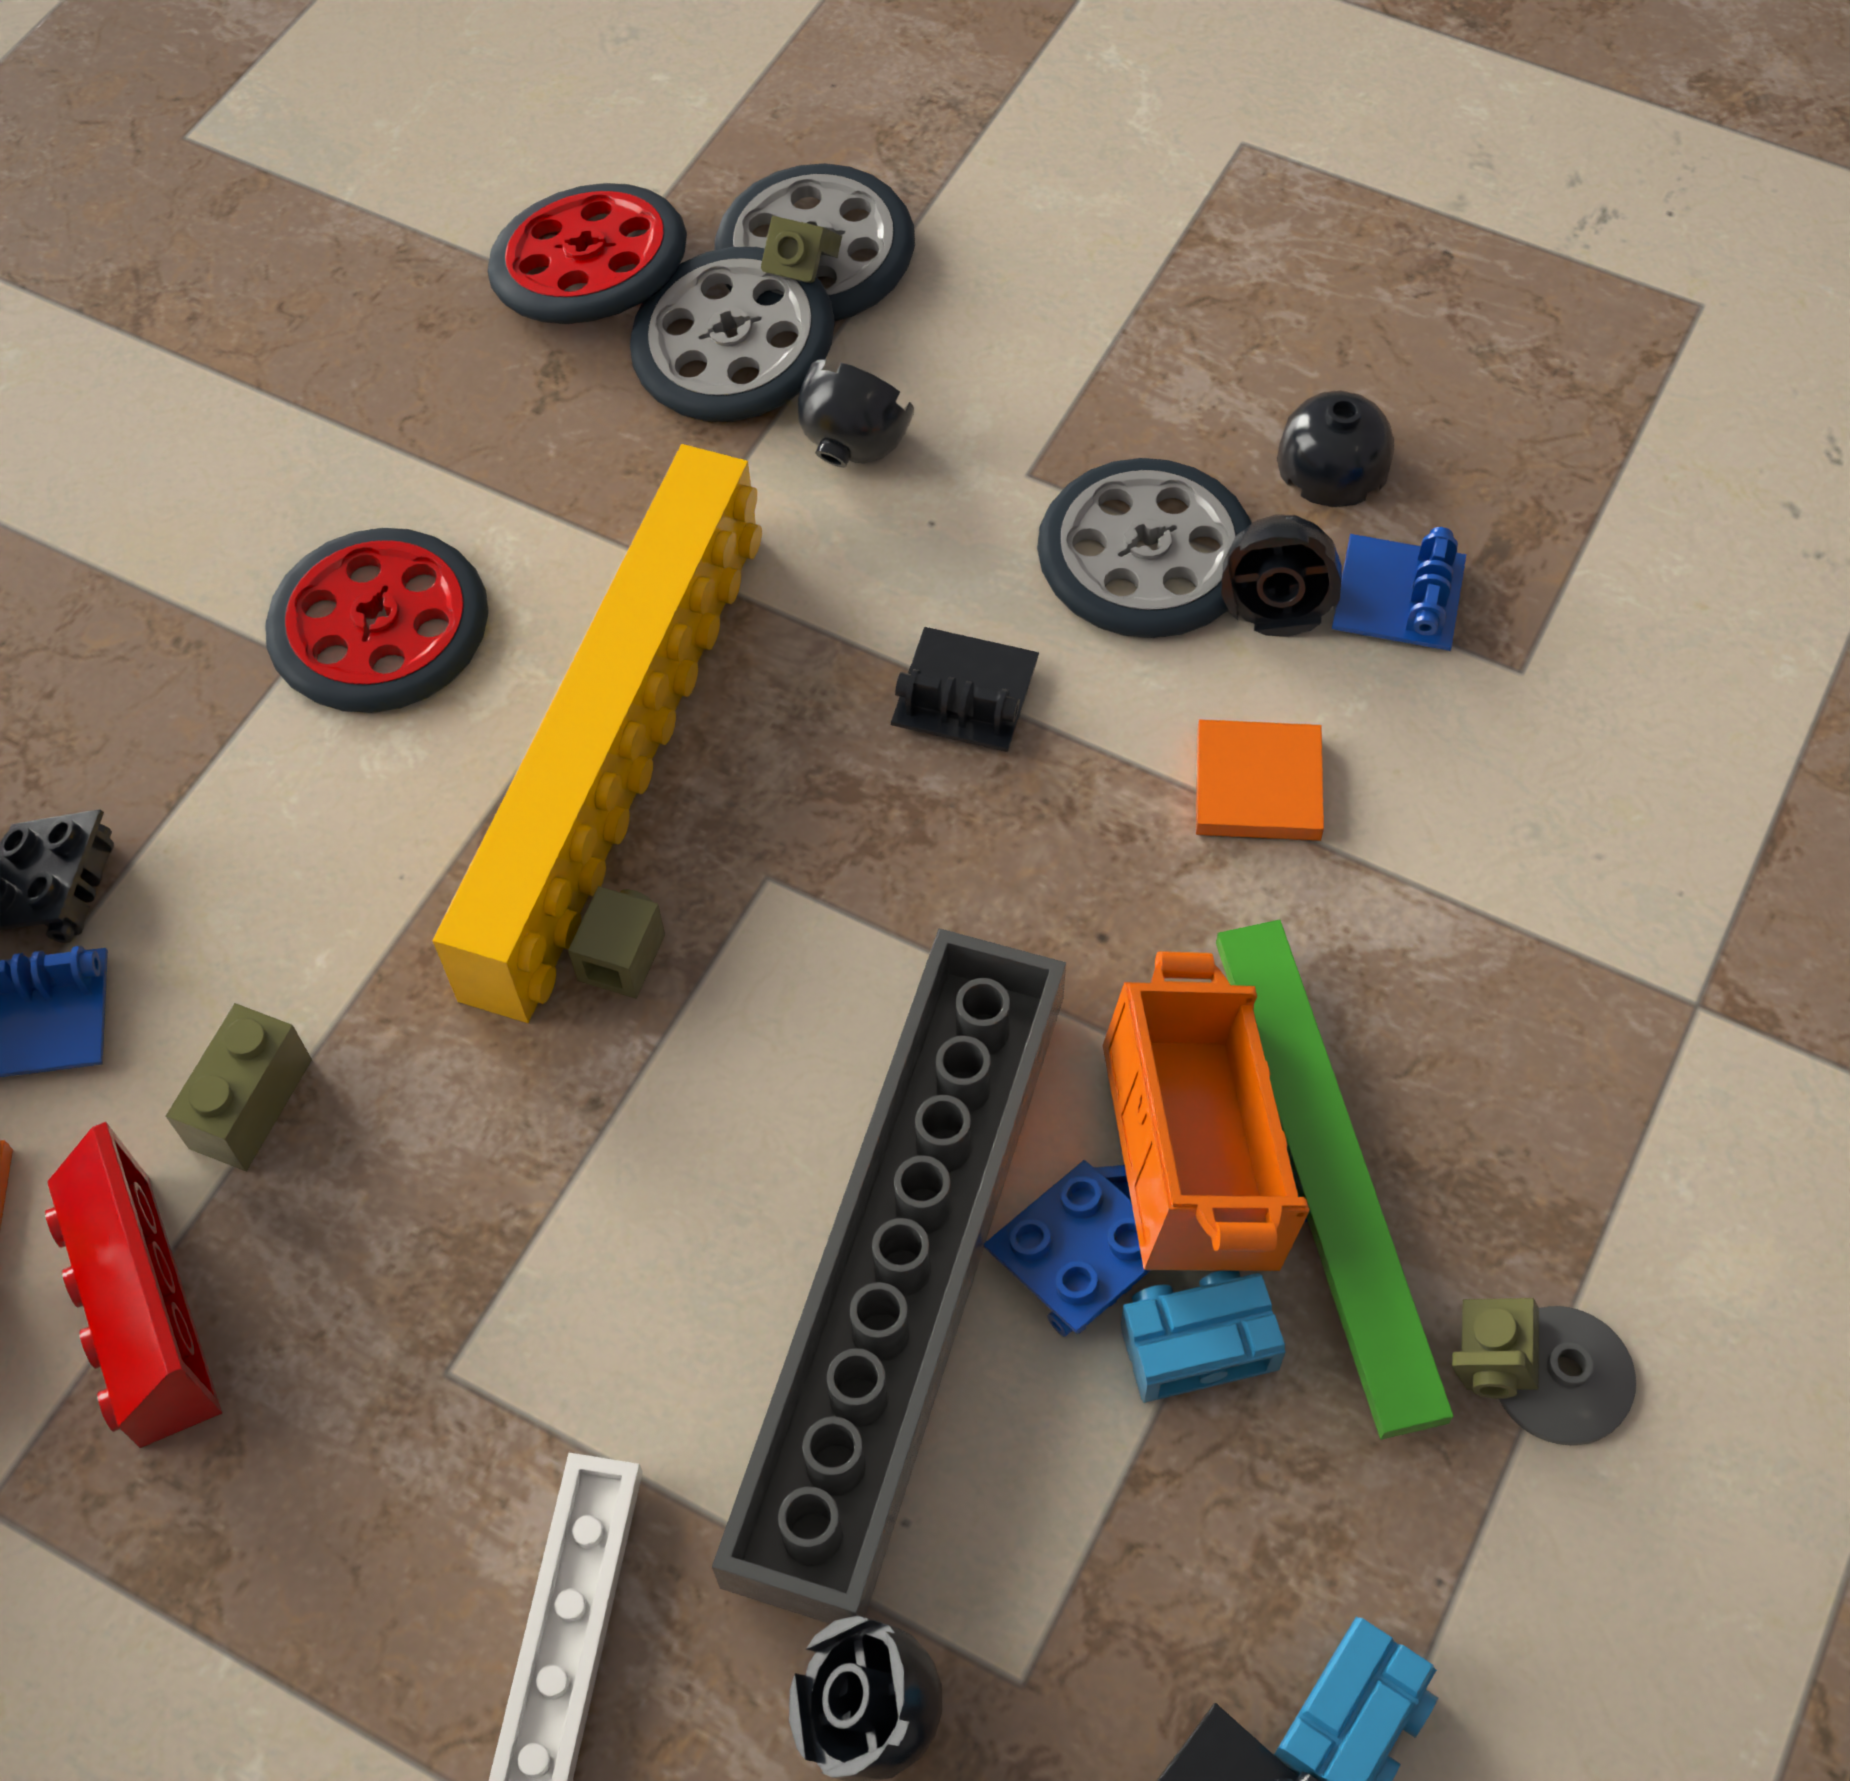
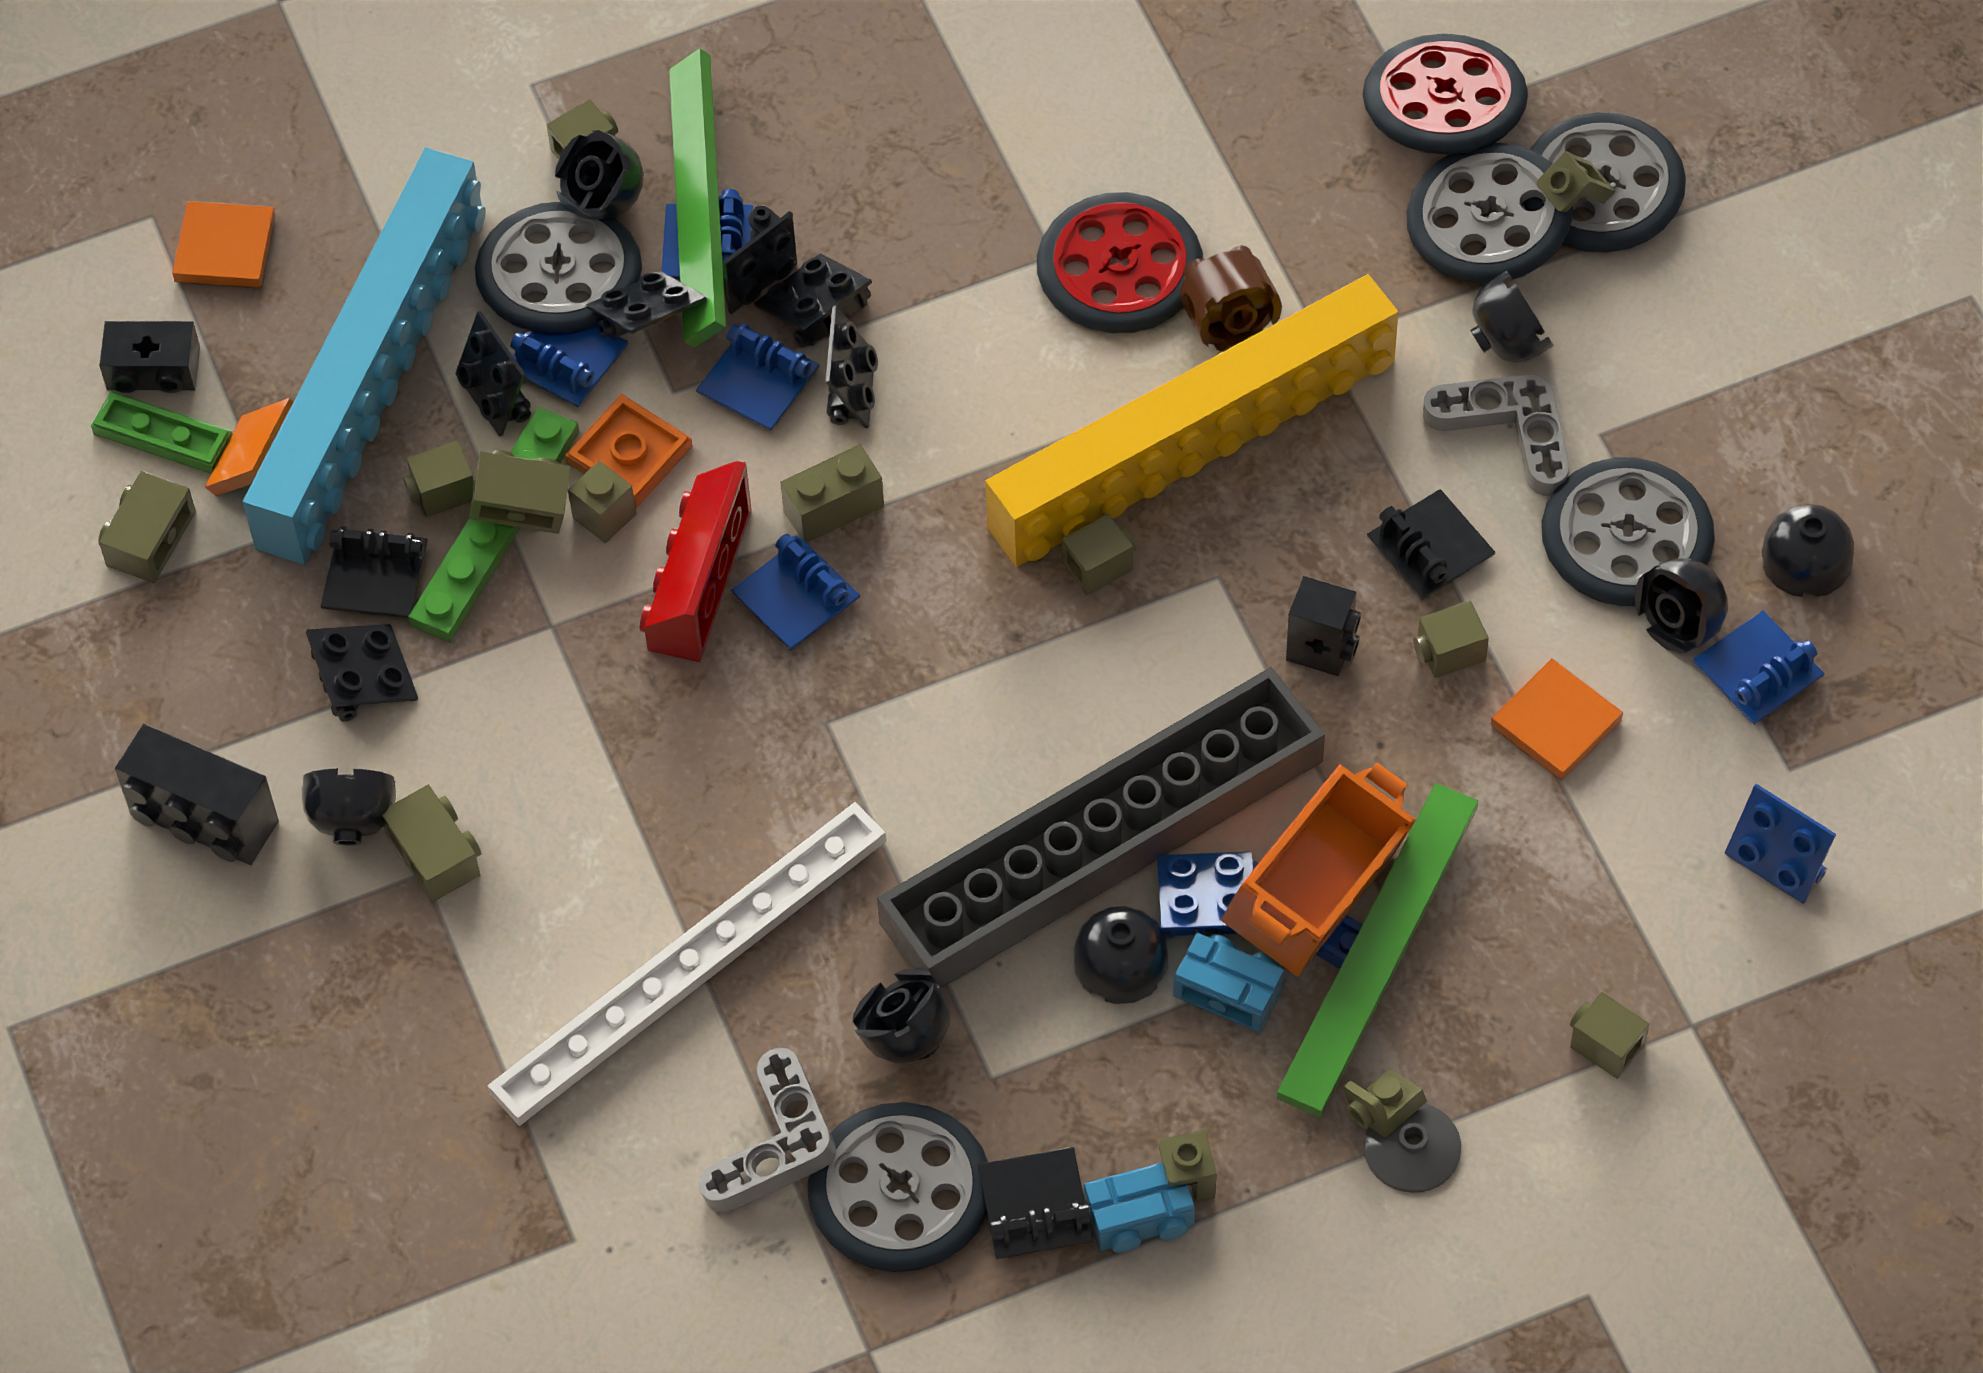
camera: 40 degrees right, 0 degrees up
(153, 933) = (849, 372): none -> black hinge
(281, 1239) = (795, 592): none -> blue hinge
(538, 573) = (1229, 297): none -> reddish brown brick
(927, 501) = (1513, 408): none -> light grey beam
(947, 845) = (1322, 626): none -> black brick
(1045, 1400) = (1120, 955): none -> black cylinder
(1083, 769) = (1451, 639): none -> olive brick
(1374, 1610) = (1190, 1162): none -> olive bracket
(1616, 744) = (1780, 844): none -> blue hinge
(1647, 1078) = (1608, 1034): none -> olive brick

